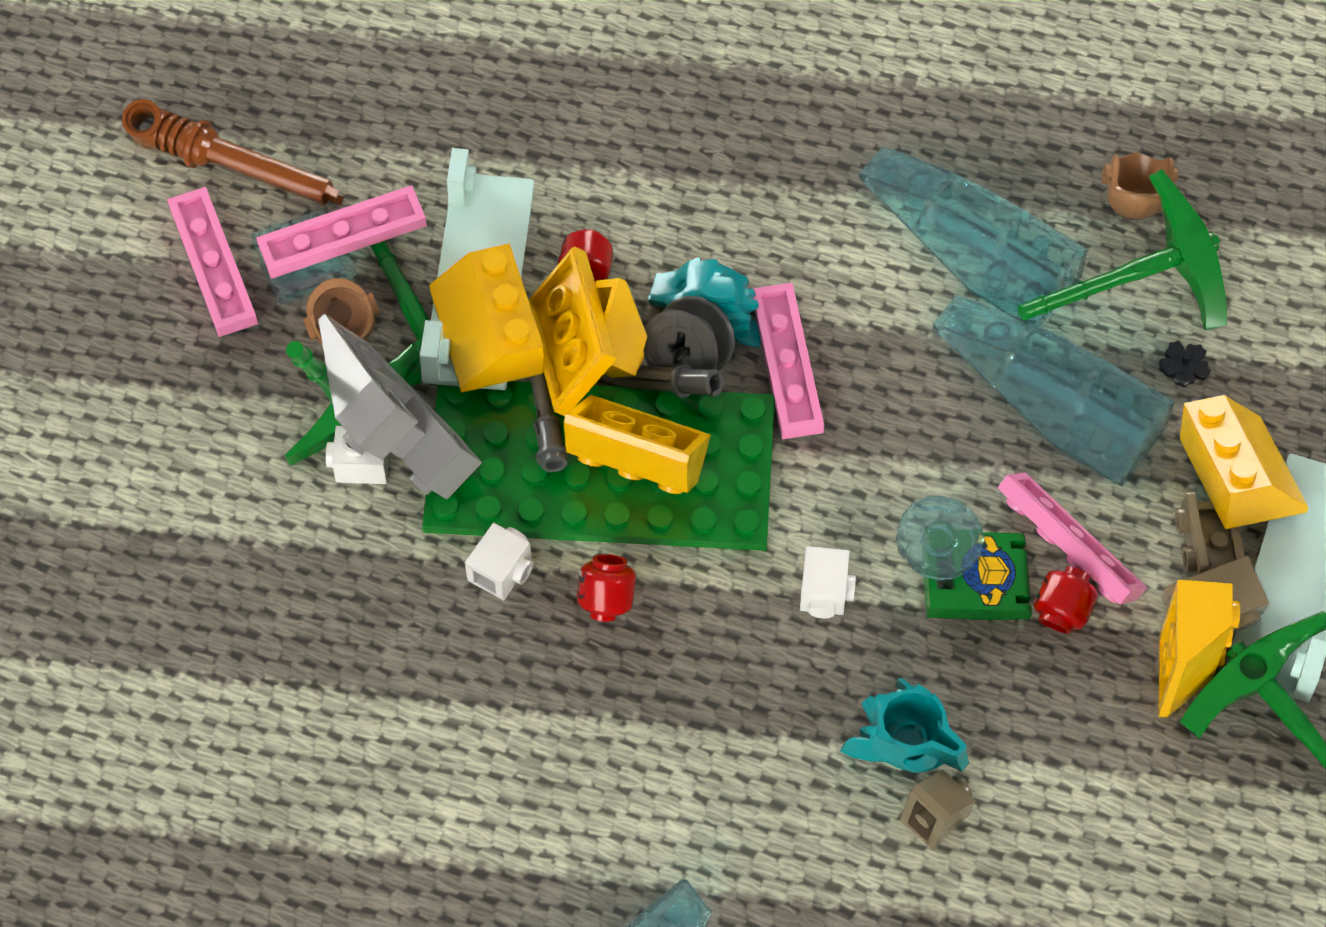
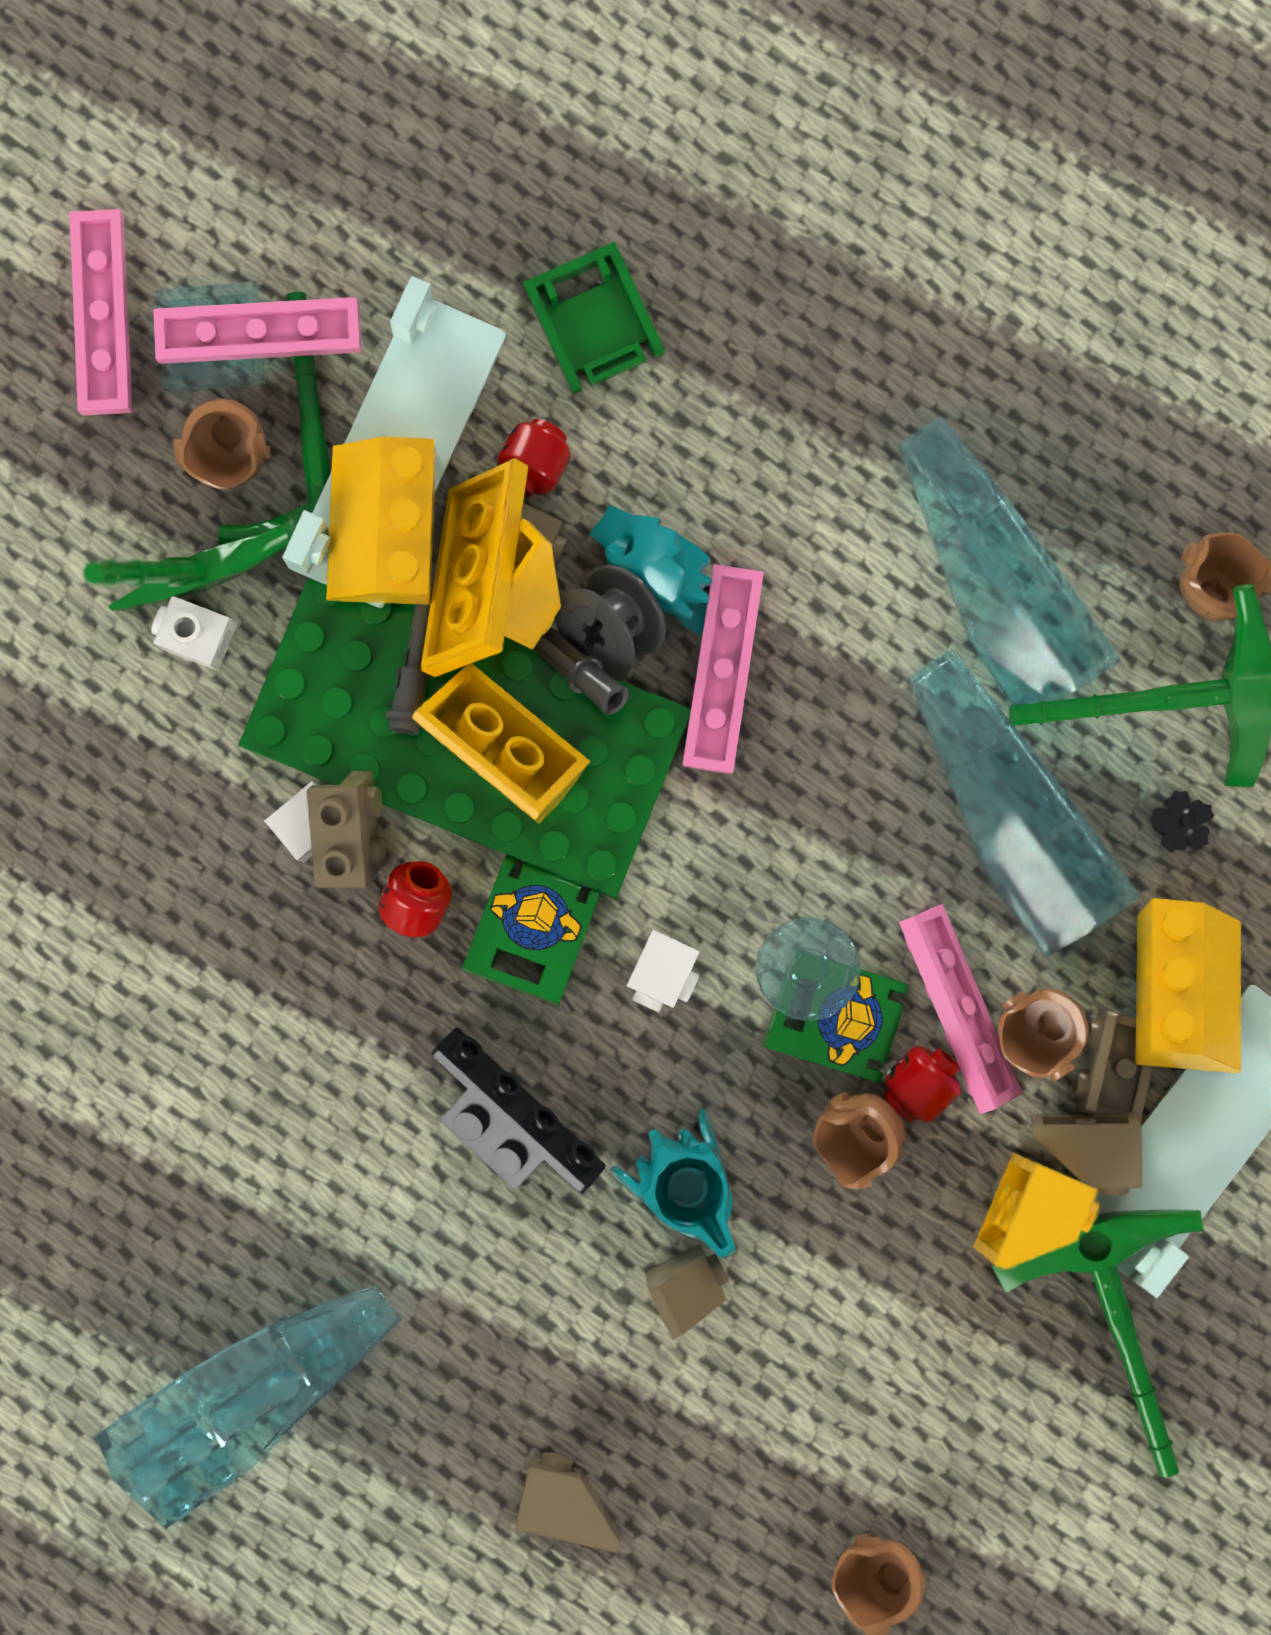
camera: 20 degrees right, 25 degrees up
(200, 144) = (131, 148): dark orange piece -> none
(389, 415) = (214, 615): light grey wedge -> none
(530, 549) = (345, 832): none -> dark tan bracket
(602, 167) = (599, 327): none -> green container
(708, 578) = (535, 921): none -> green container
(742, 740) = (507, 1122): none -> black bracket
(1031, 649) = (859, 1138): none -> medium nougat cap
(1142, 528) = (1043, 1032): none -> medium nougat cap

